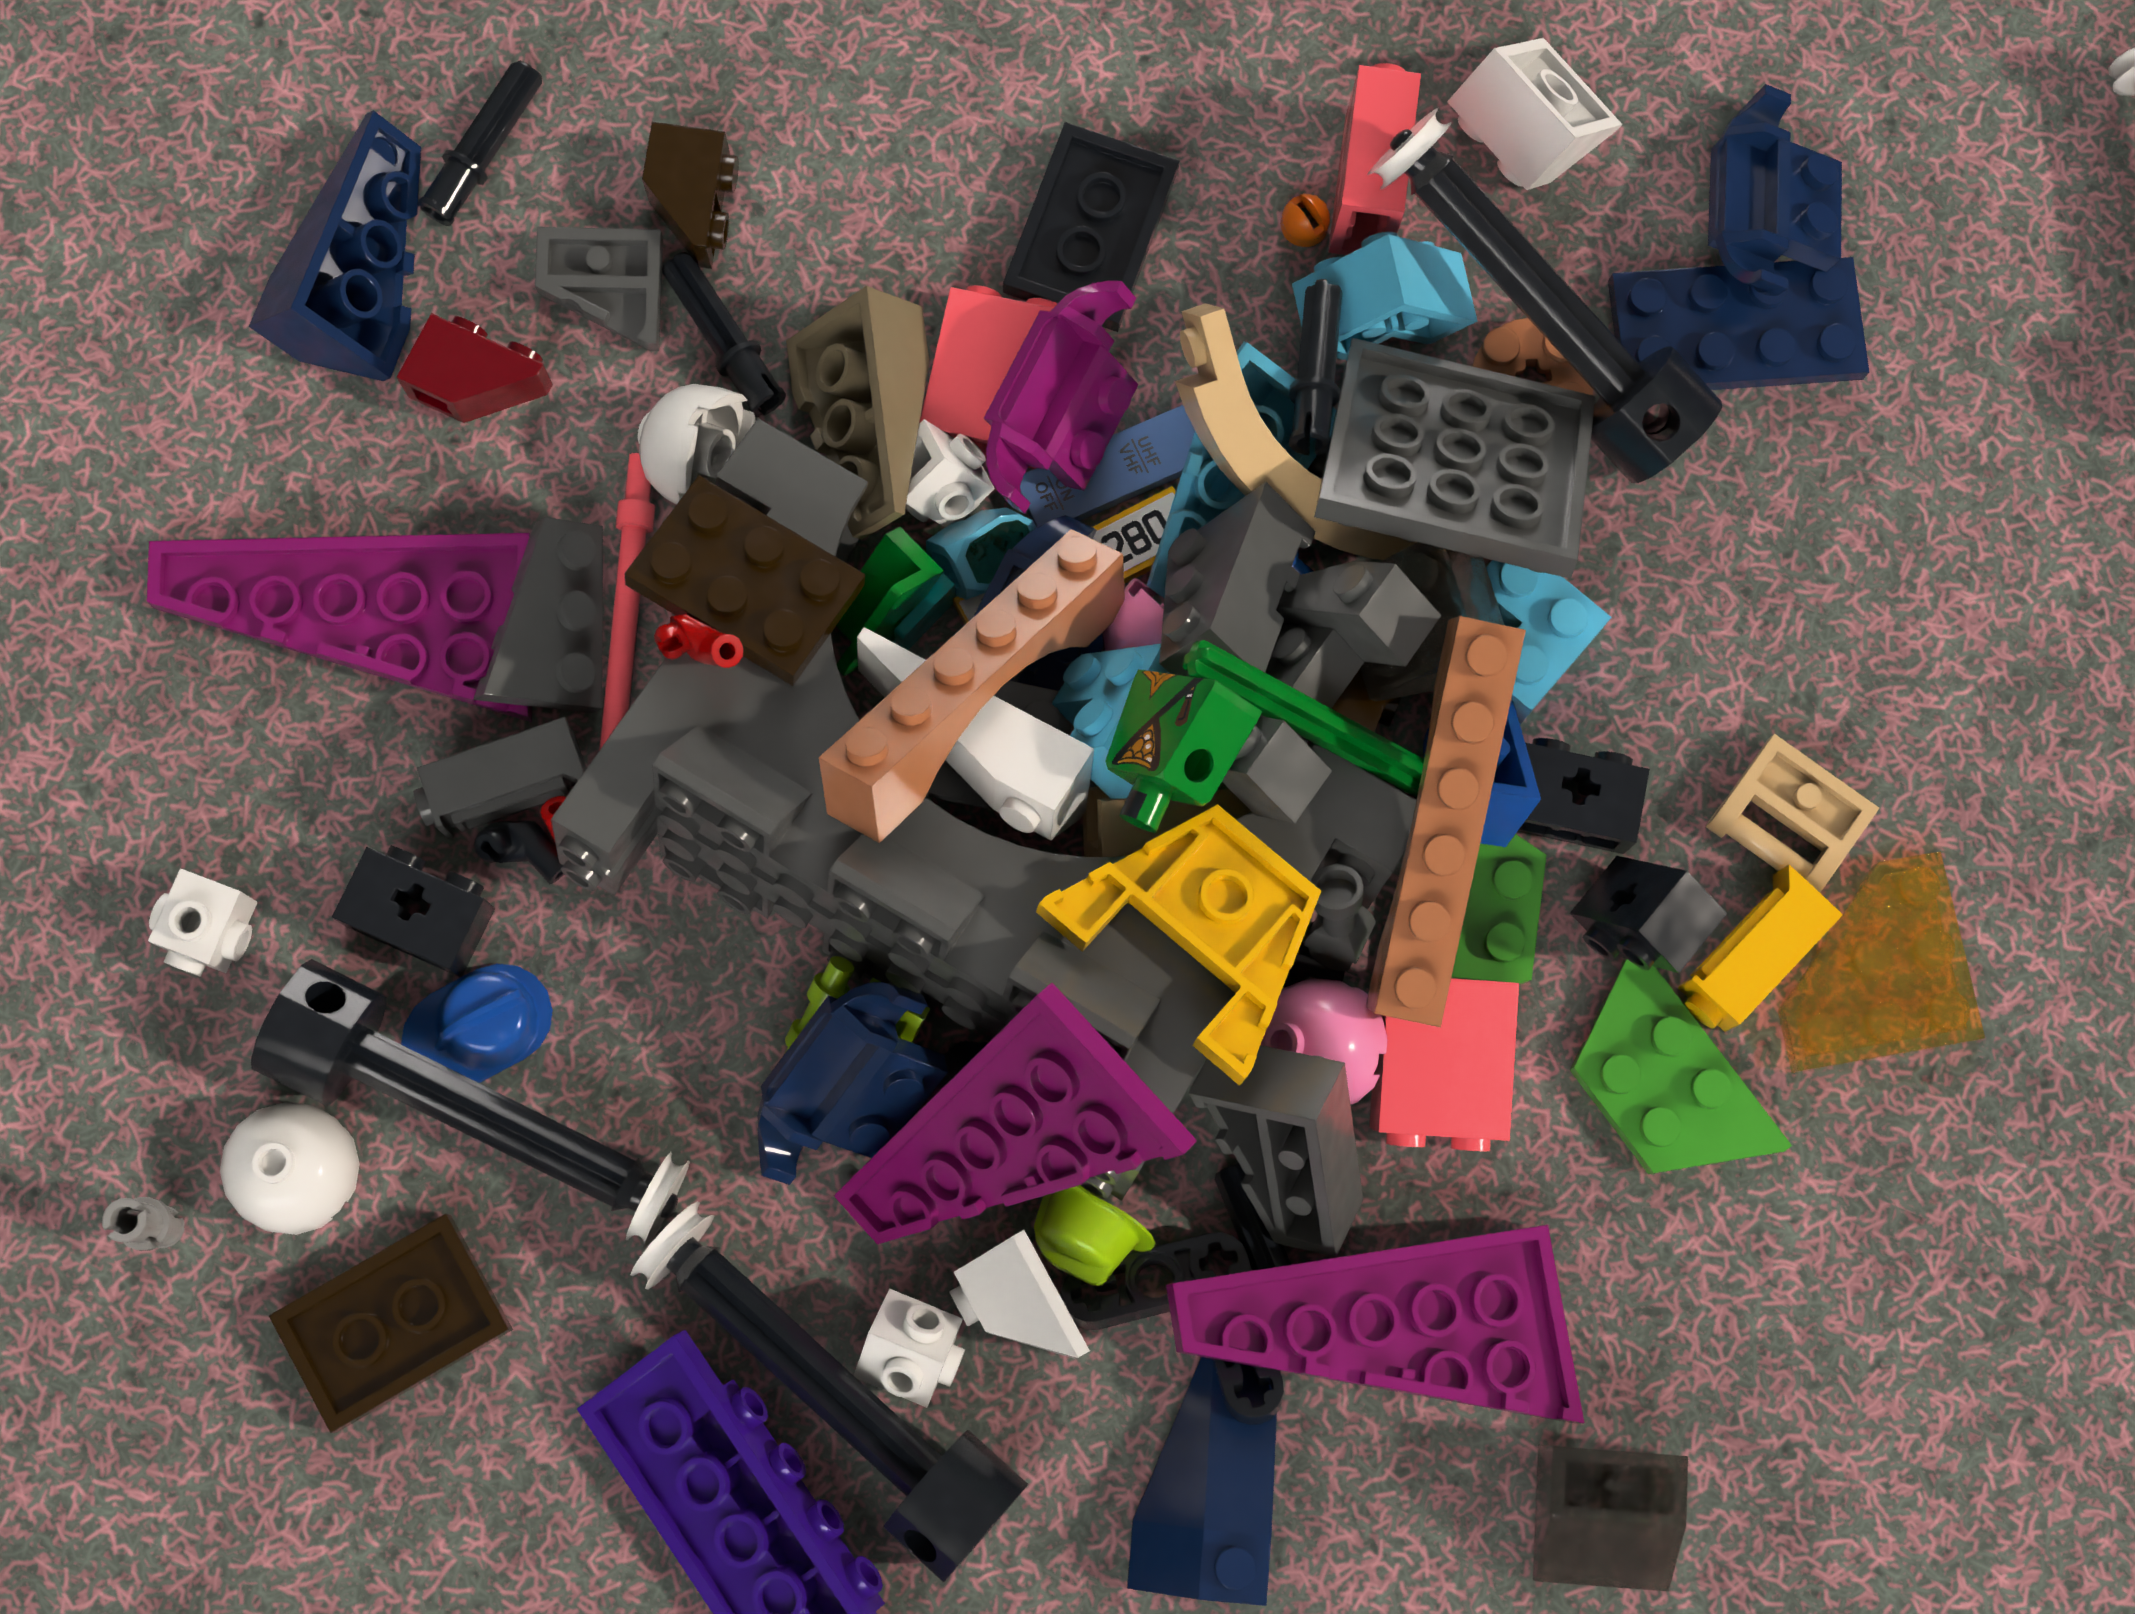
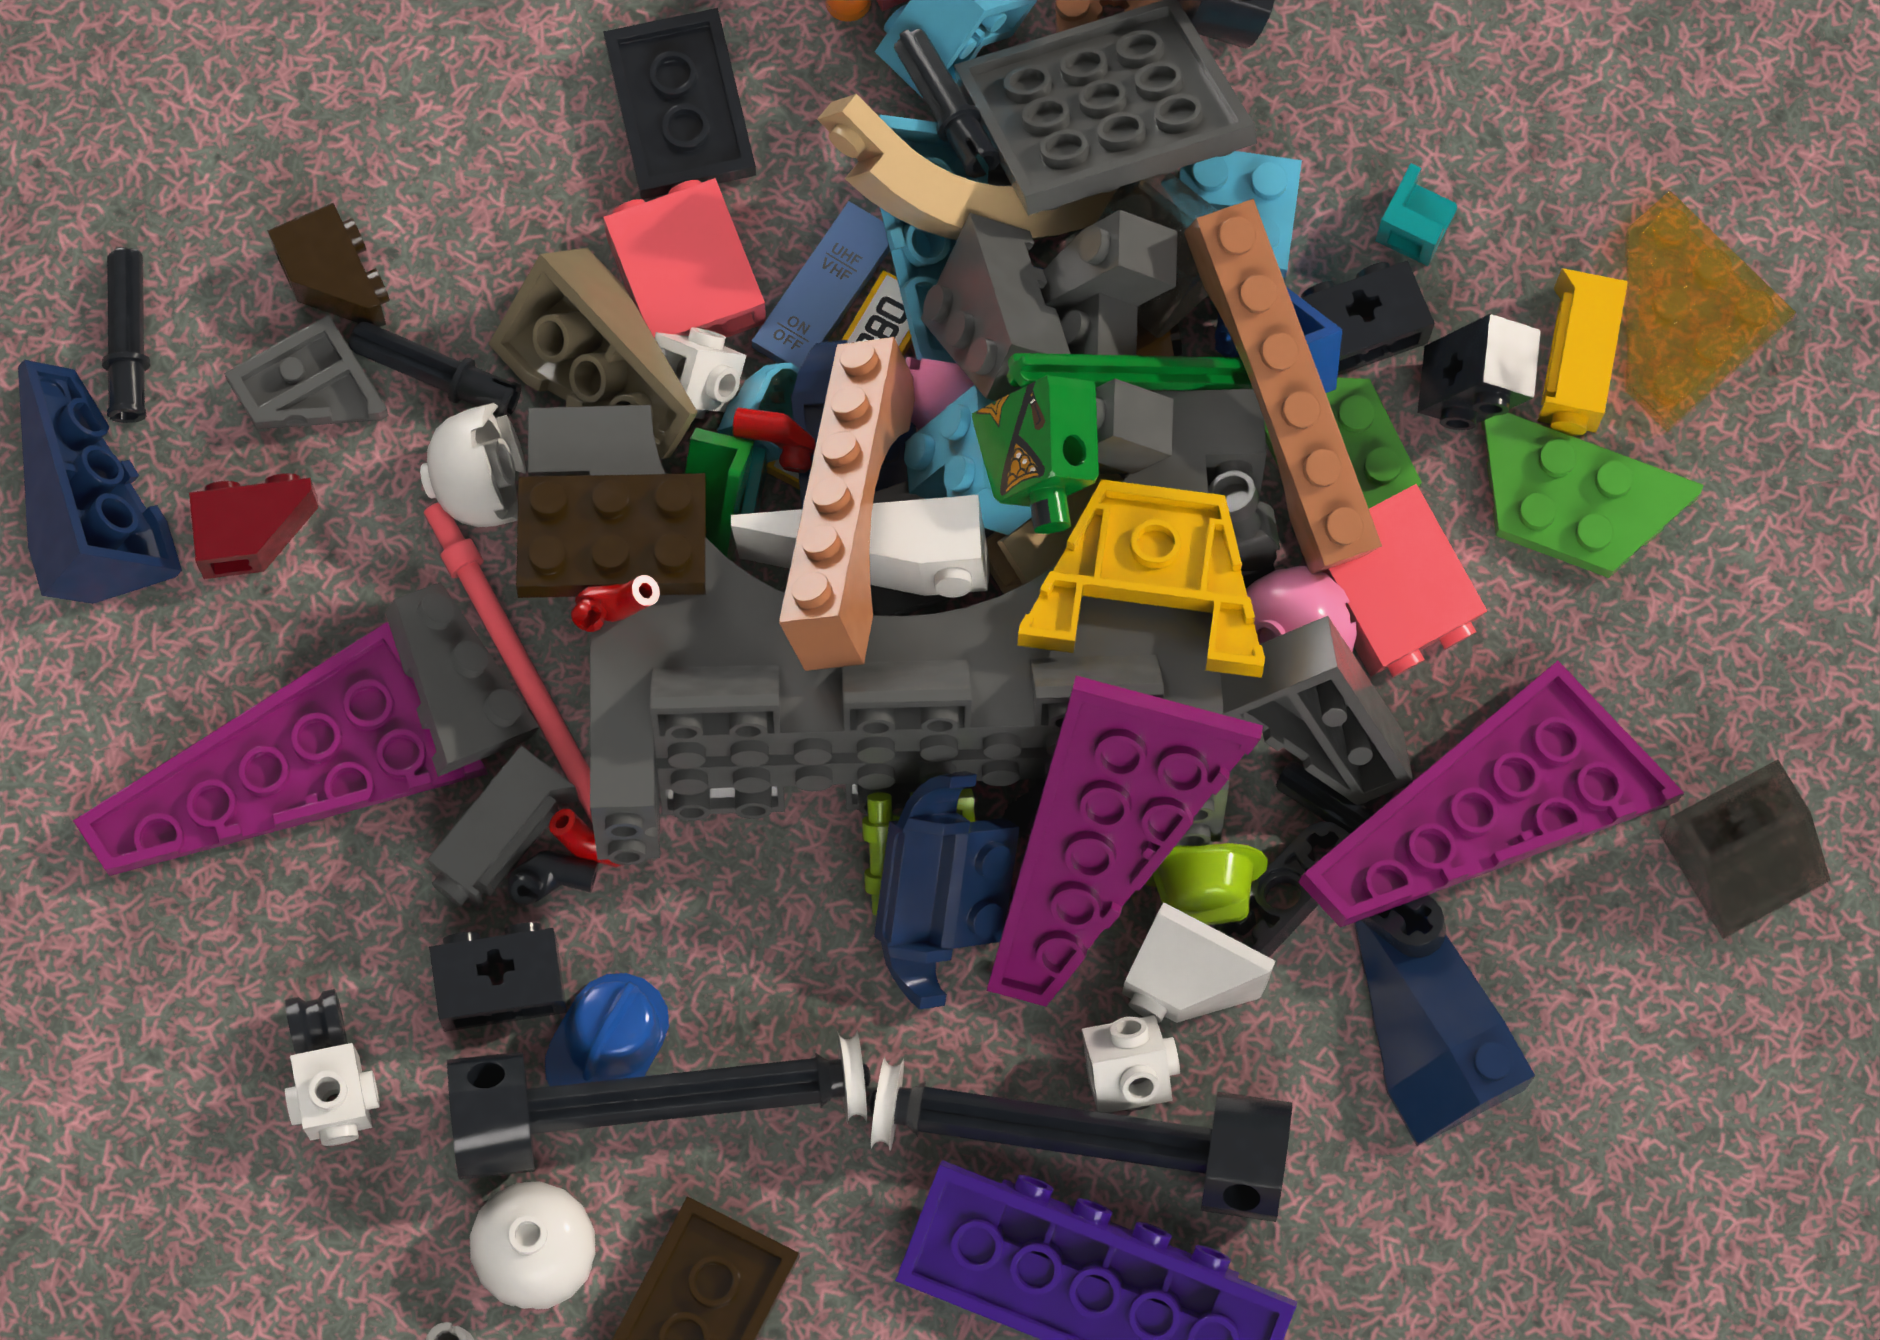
camera: 30 degrees left, 5 degrees down
(234, 852) = (316, 1022): none -> black wheel
(968, 571) = (782, 431): none -> red arm
(1060, 394) = (754, 246): magenta plate -> none
(1686, 733) = (1415, 219): none -> teal panel
(1803, 800) = (1538, 215): tan plate -> none

